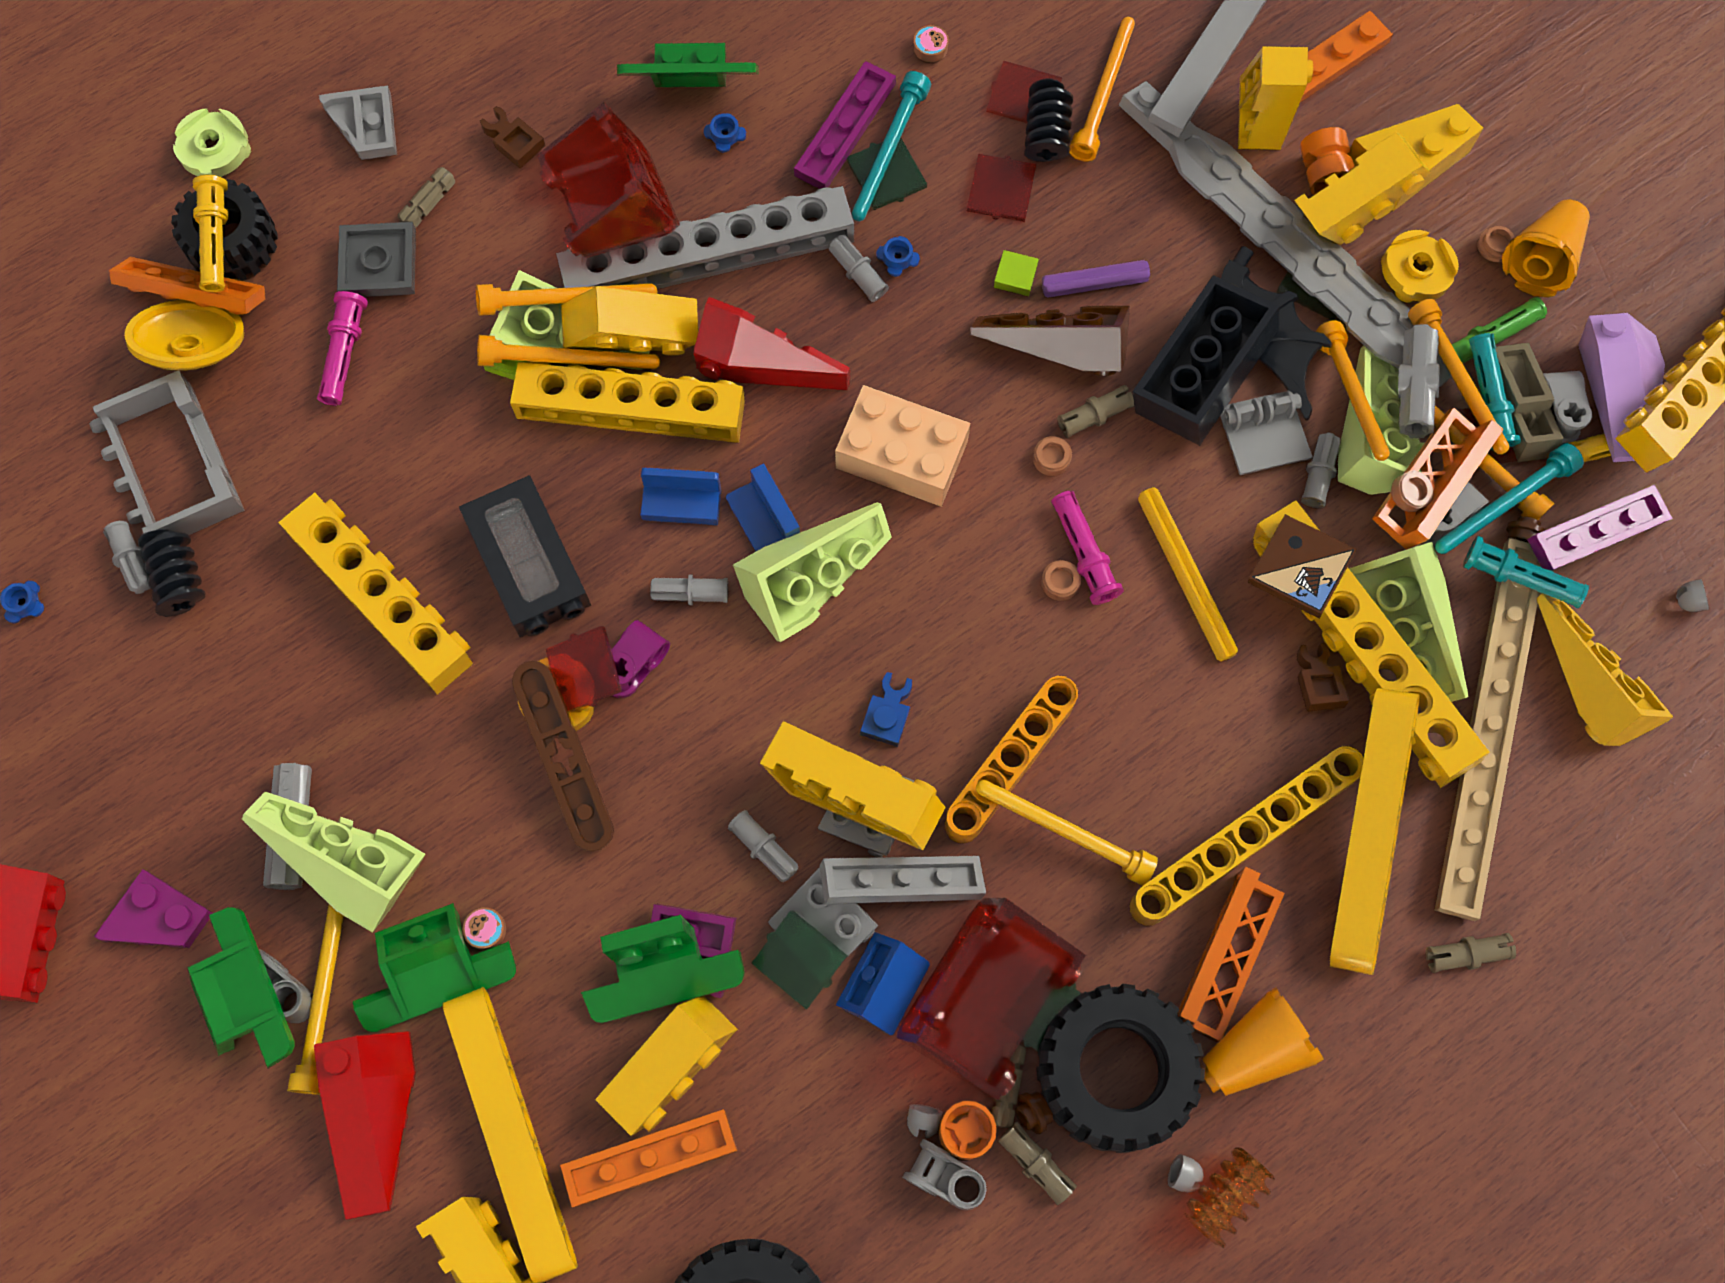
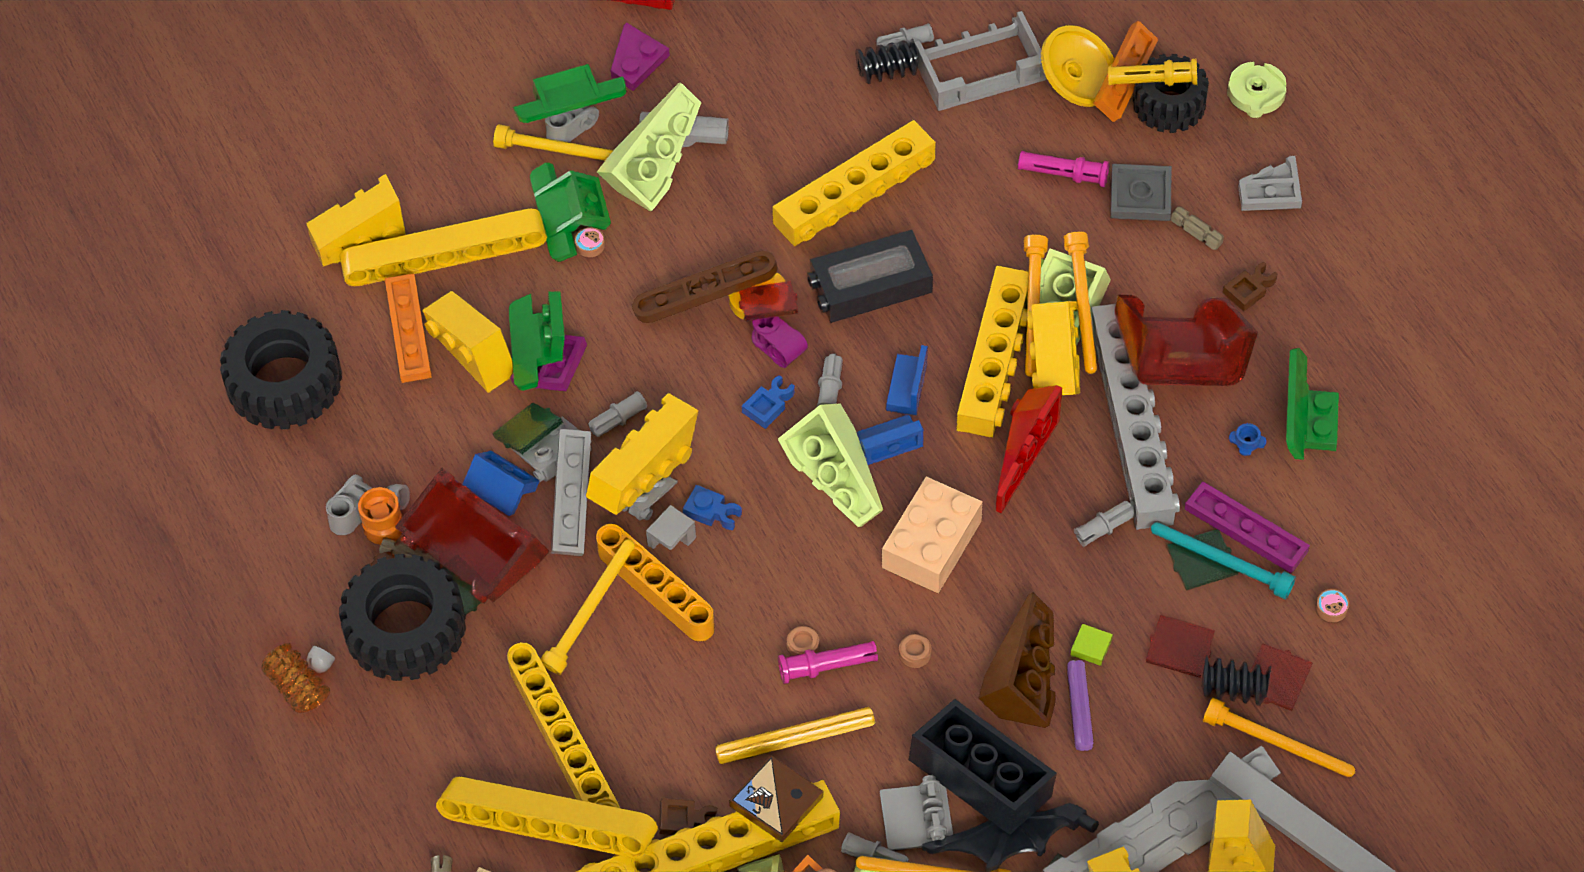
camera: 100 degrees right, 15 degrees down
(365, 1106) = (483, 166): red wedge -> none
(731, 662) = (767, 405): none -> blue plate
(894, 246) = (1118, 548): blue plate -> none
(938, 749) = (670, 529): none -> light grey panel
(1037, 1163) = (349, 563): dark tan pin -> none
(1095, 411) = (950, 685): dark tan pin -> none
(1219, 944) = (480, 703): orange fence -> none
(1260, 1047) = (400, 721): light orange cone -> none

